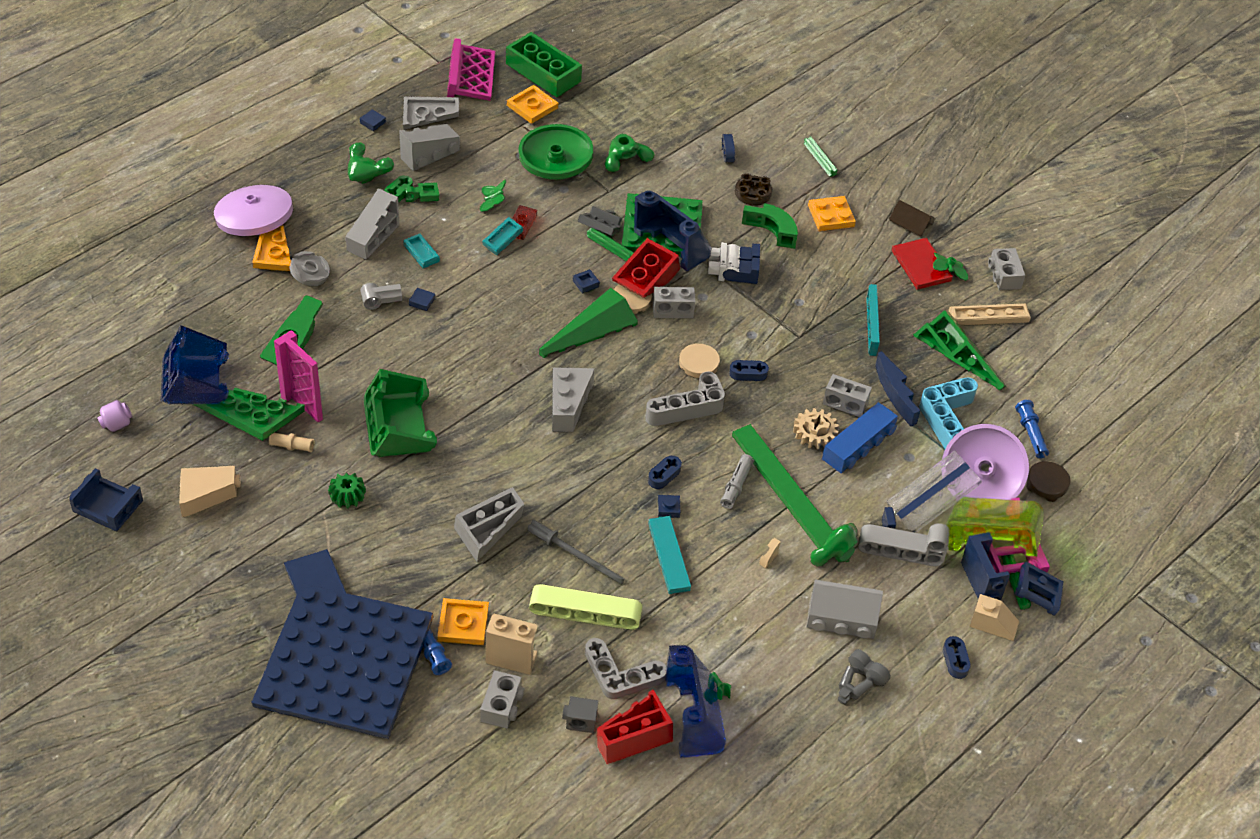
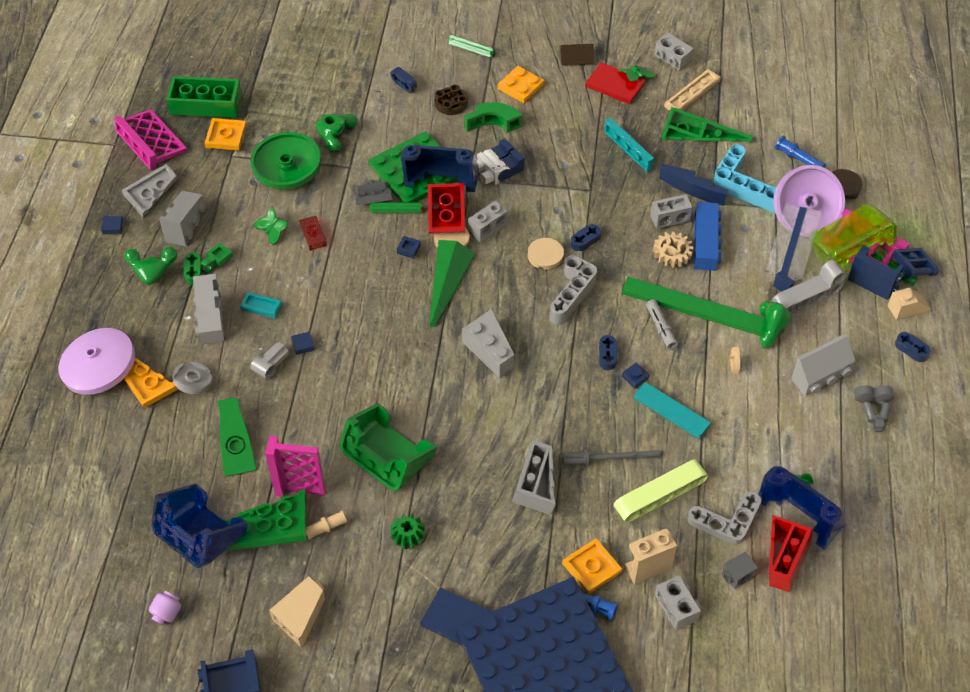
camera: 35 degrees left, 5 degrees up
(502, 236) = (312, 252): teal tile -> none

